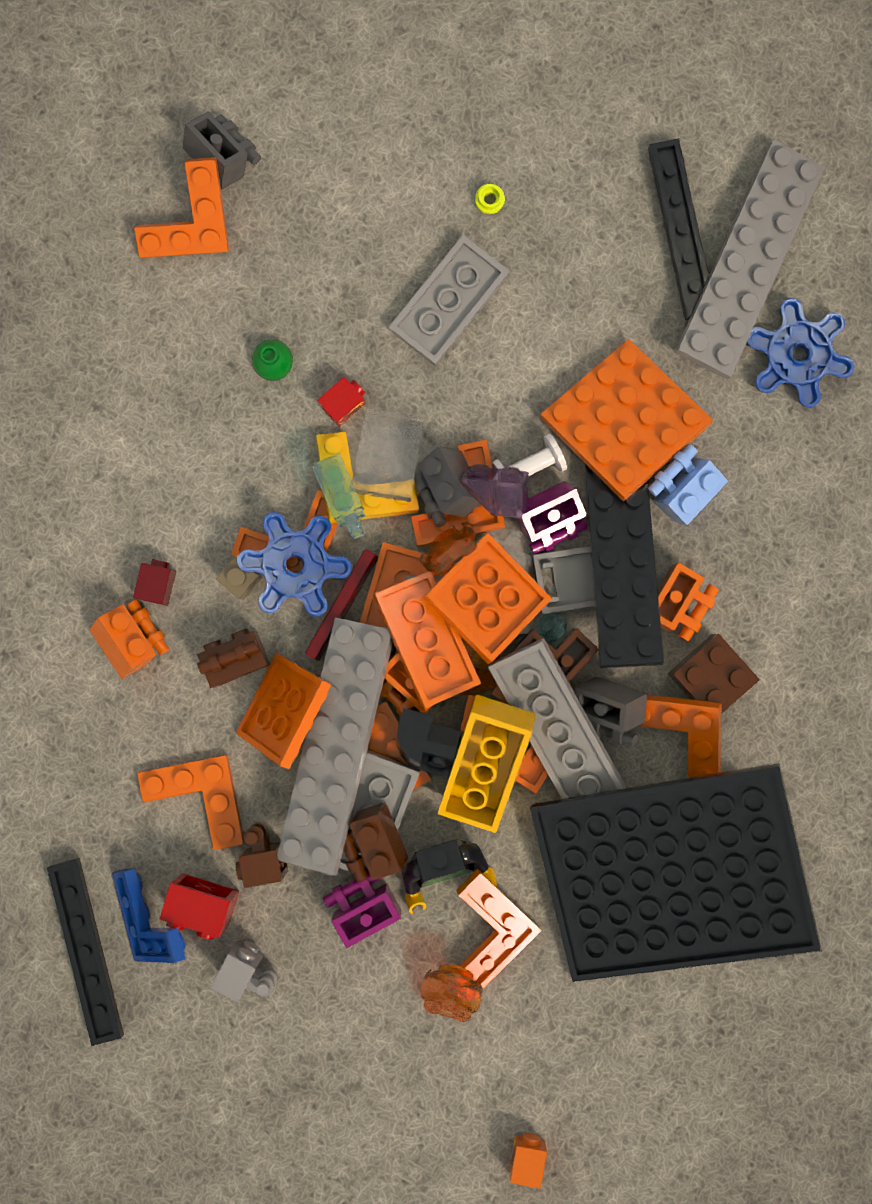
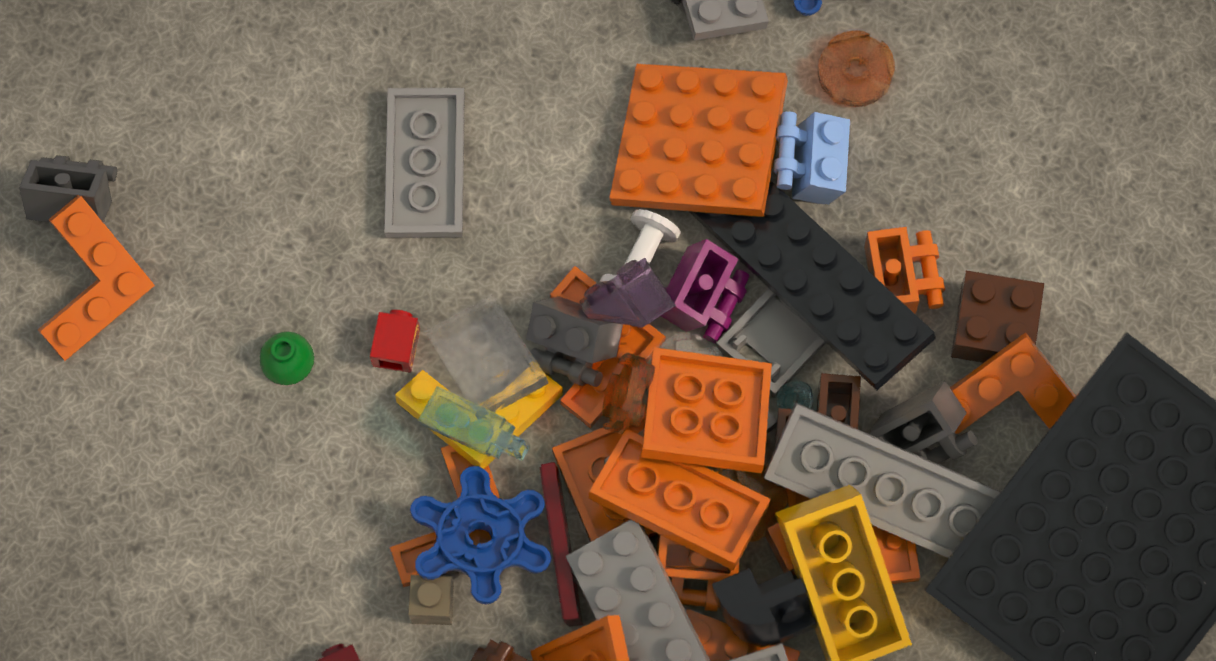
camera: 40 degrees left, 15 degrees down
(489, 189) = (385, 25): neon yellow plate -> none
(752, 433) = (850, 89): none -> clear orange plate

